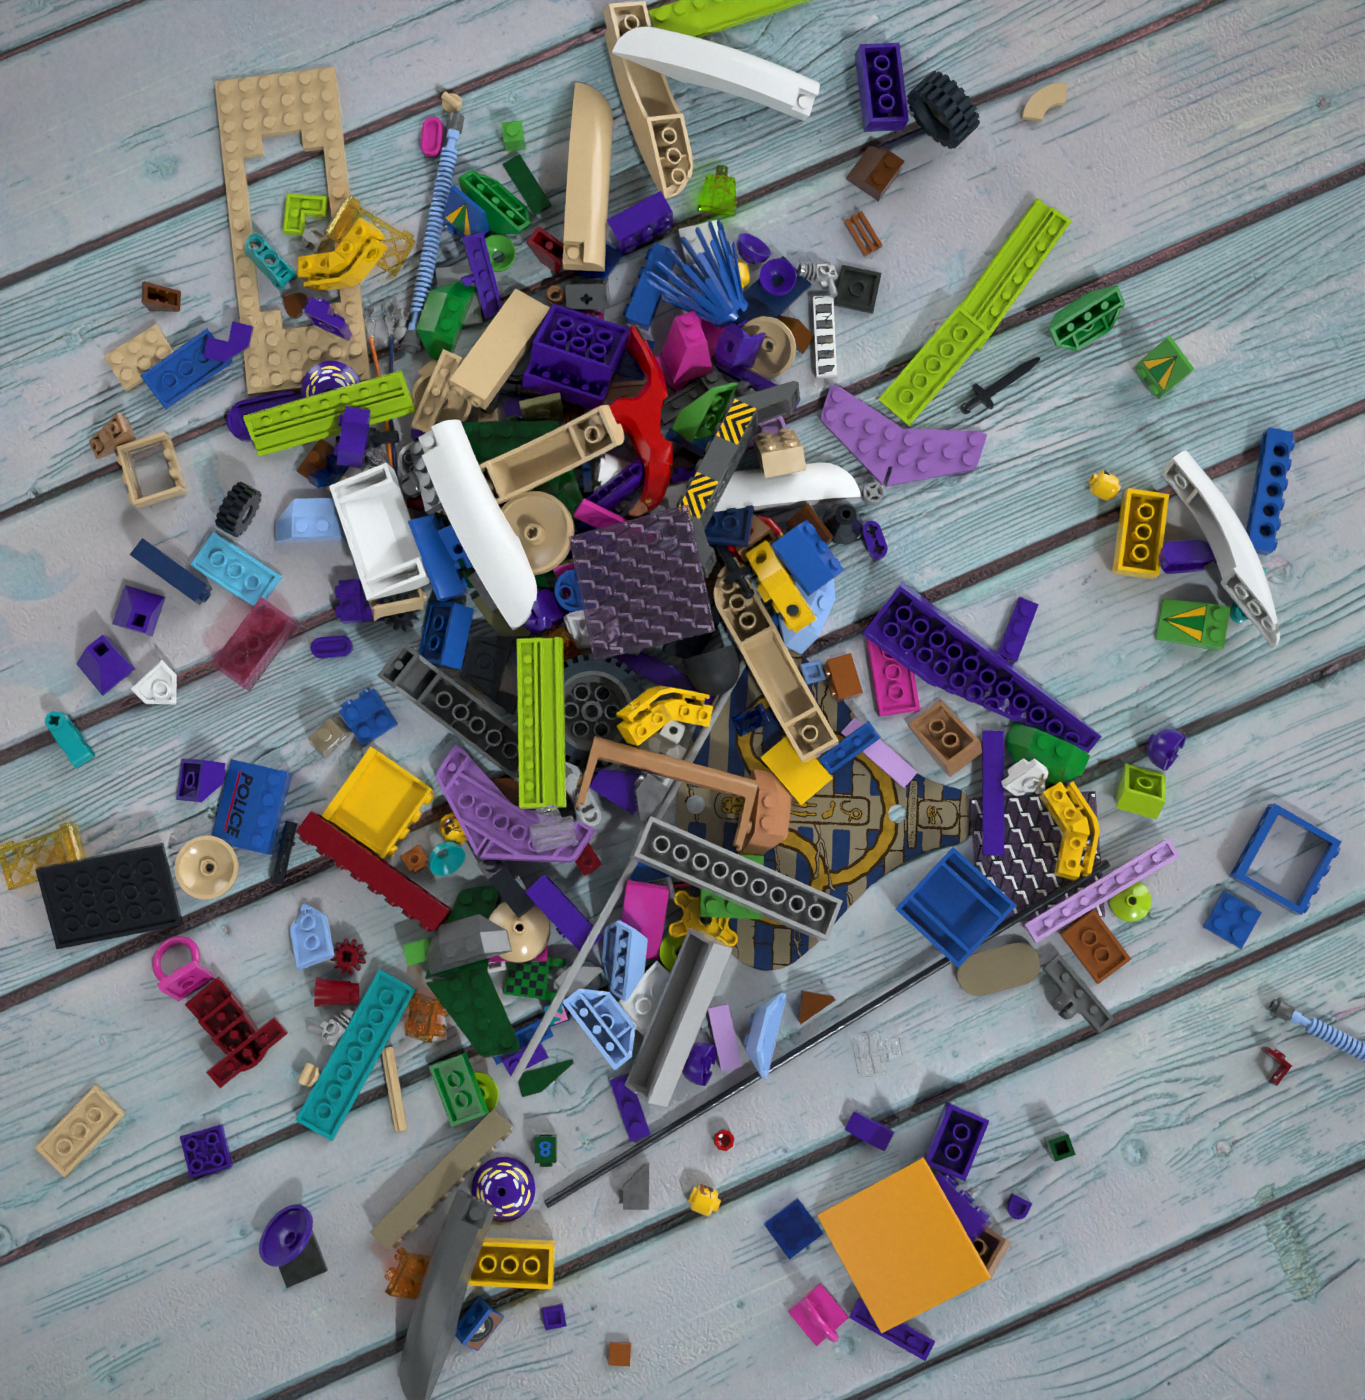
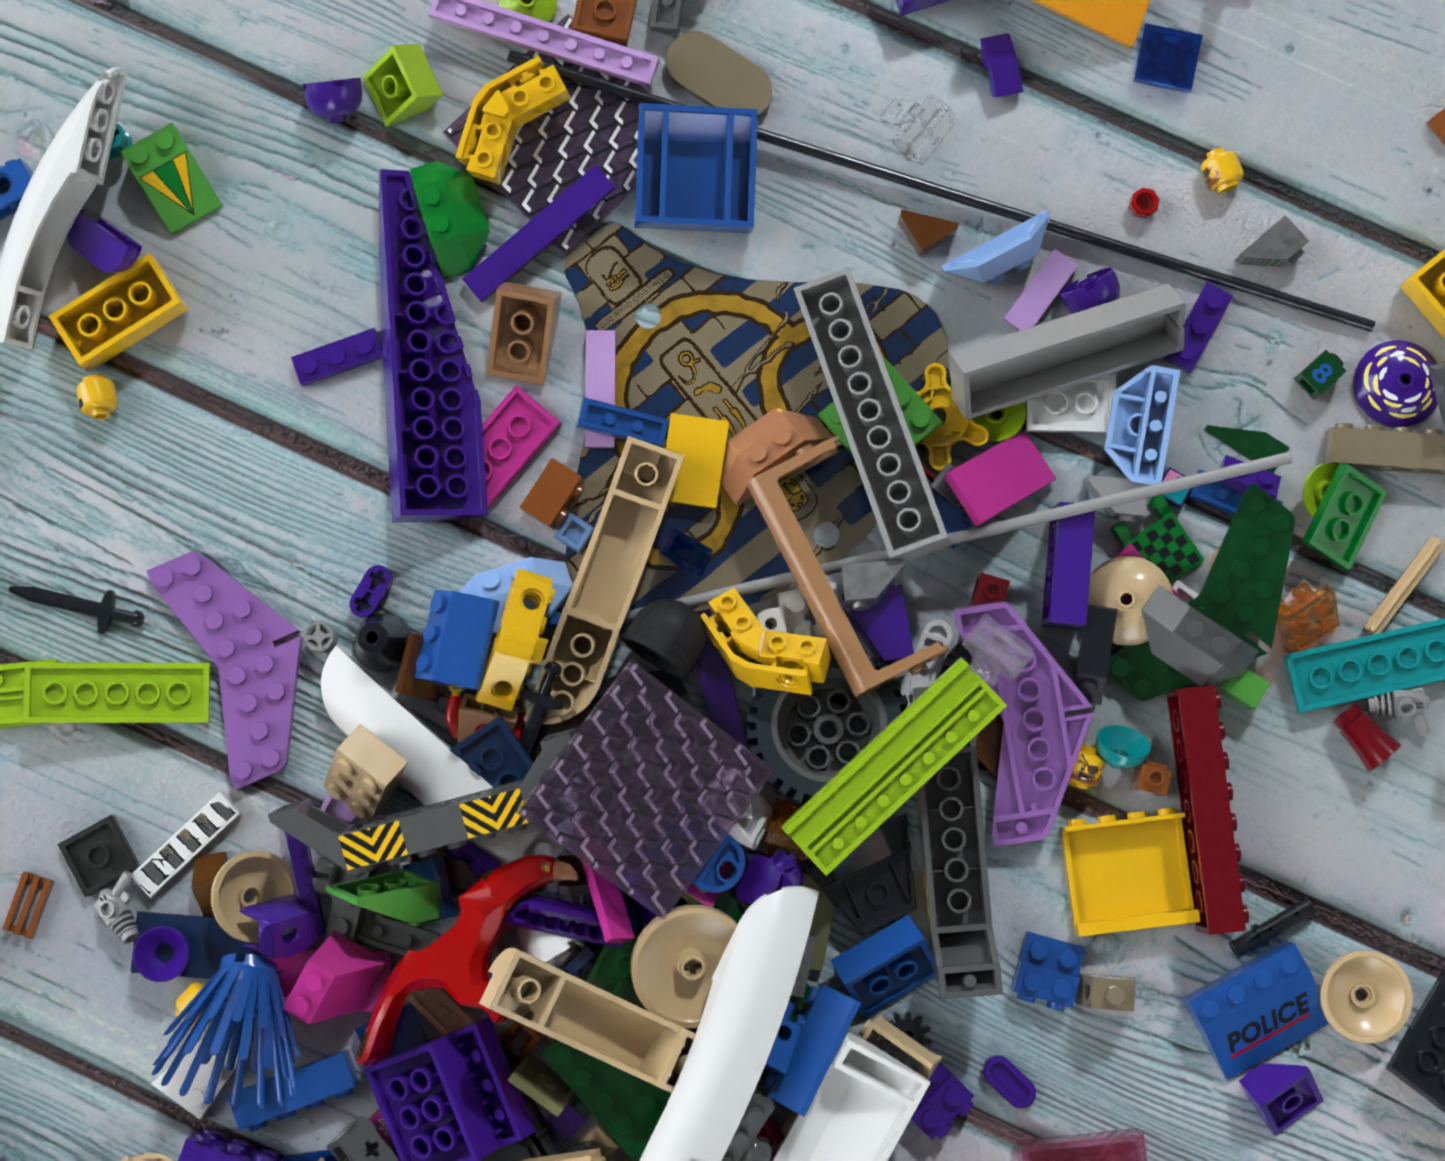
camera: 130 degrees left, 0 degrees up
(311, 938) = (1334, 815): light blue tile -> none
(356, 957) = (1323, 748): dark red gear -> none
(623, 958) = (1058, 463): light blue wedge -> none
(718, 193) = (117, 1108): clear neon green torso -> none
(752, 249) = (151, 1012): dark purple piece -> none
(1026, 777) = (492, 212): white plate -> none

